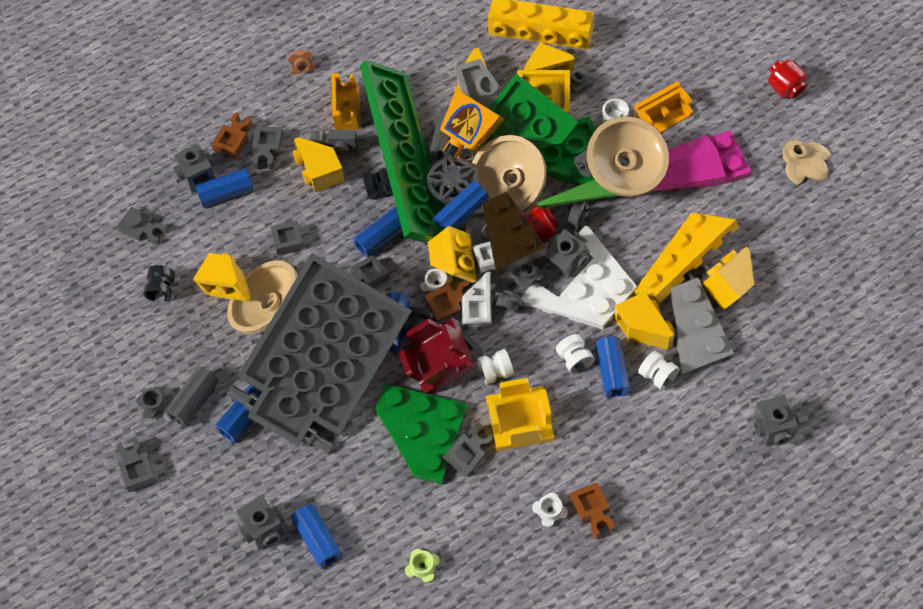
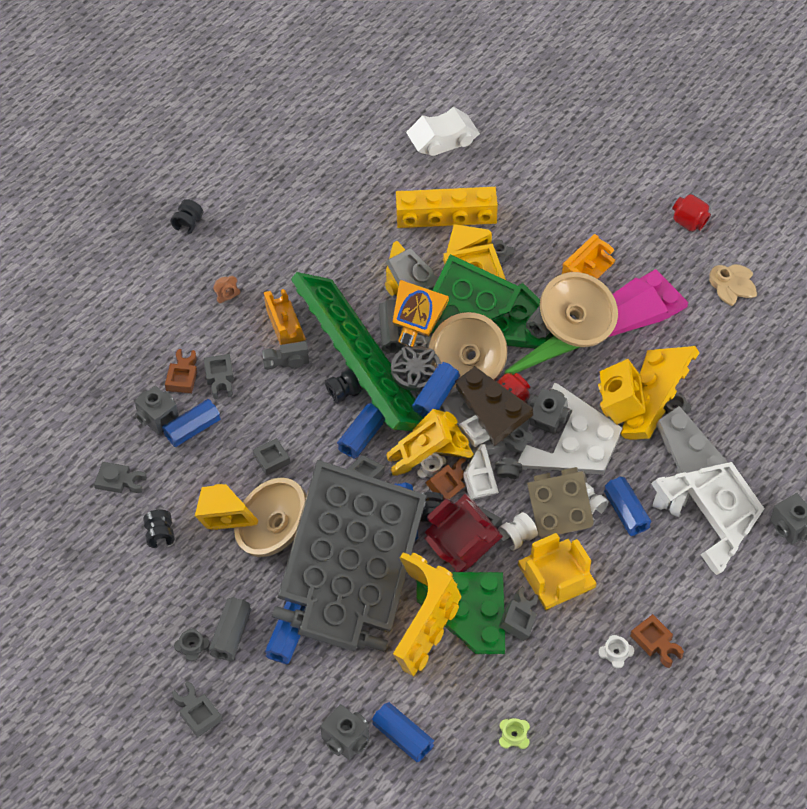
camera: 20 degrees left, 5 degrees down
(320, 164) = (281, 379): yellow slope -> none
(373, 435) = (433, 615): none -> yellow bracket
(426, 258) = (419, 445): none -> yellow hinge
(545, 348) = (560, 502): none -> dark tan bracket
(579, 216) = (546, 375): dark grey plate -> none
(614, 108) = (543, 274): white wheel -> none
(643, 322) = (641, 458): yellow slope -> none
(646, 250) = (621, 392): none -> yellow brick
(710, 385) = (724, 502): none -> white wing
(730, 280) = (707, 400): yellow slope -> none

